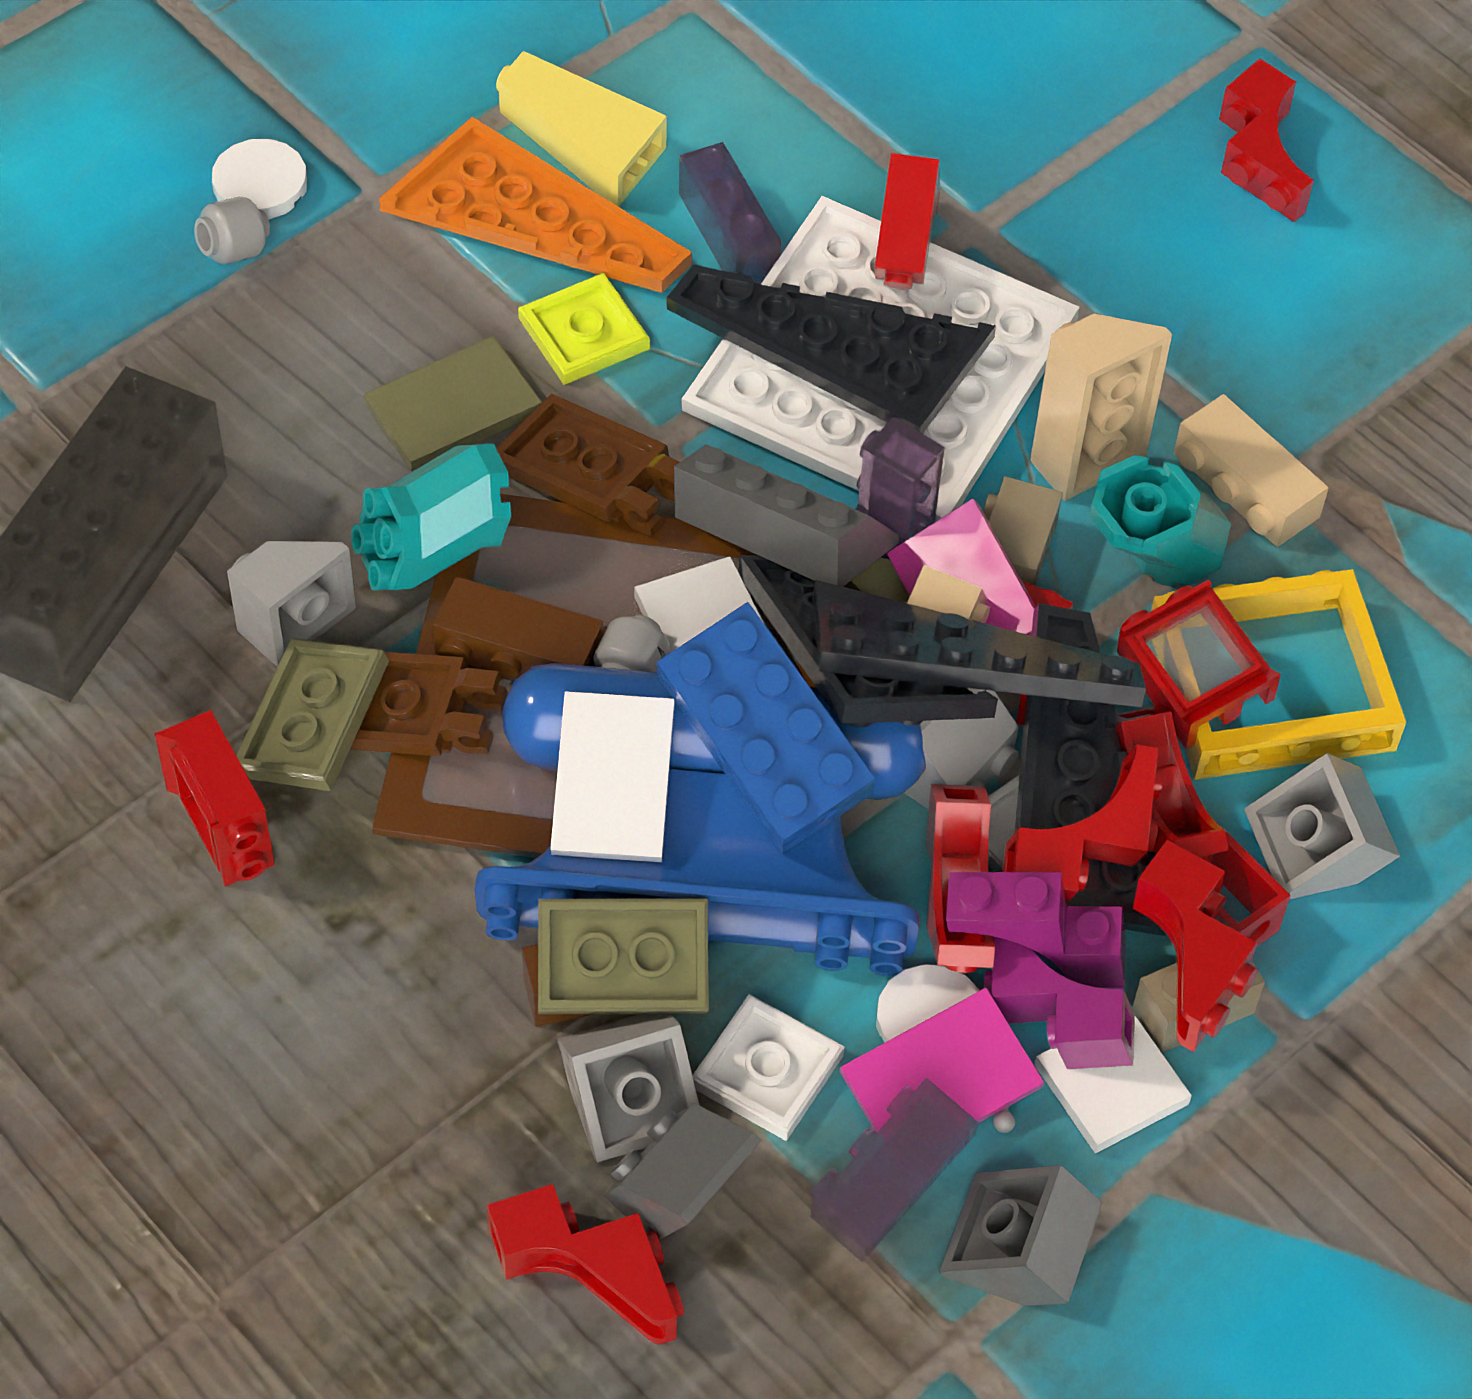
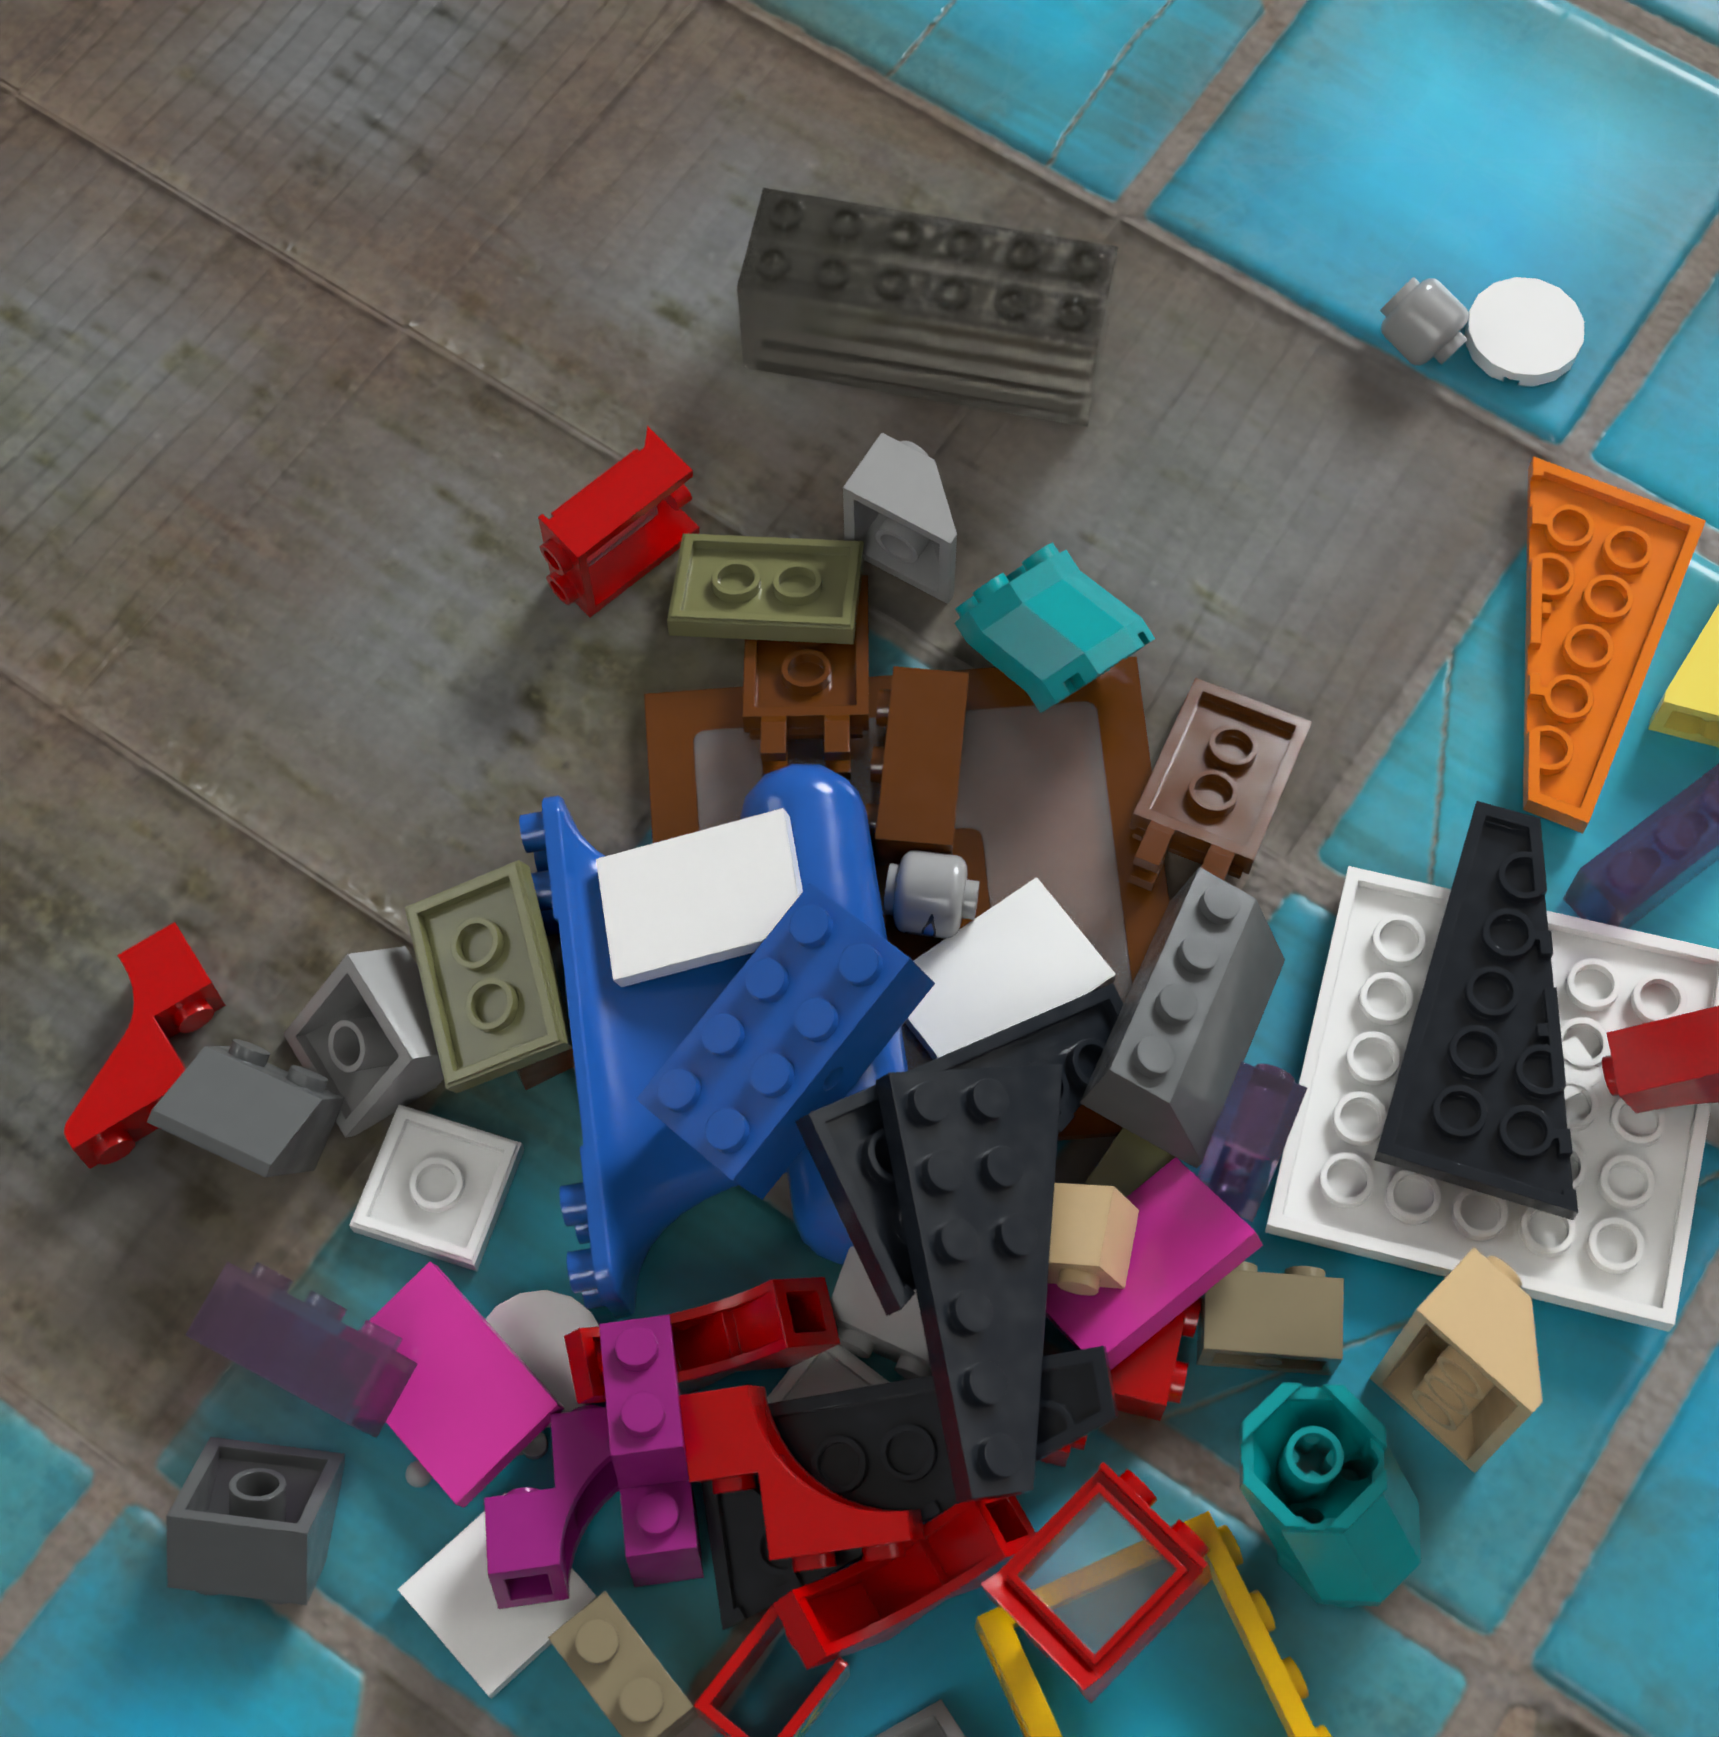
camera: 80 degrees right, 10 degrees up
(452, 402) = (1265, 622): olive tile -> none
(584, 328) = (1433, 736): neon yellow tile -> none
(1212, 959) = (612, 1662): red arch -> none
(1250, 470) = (1484, 1613): tan brick -> none

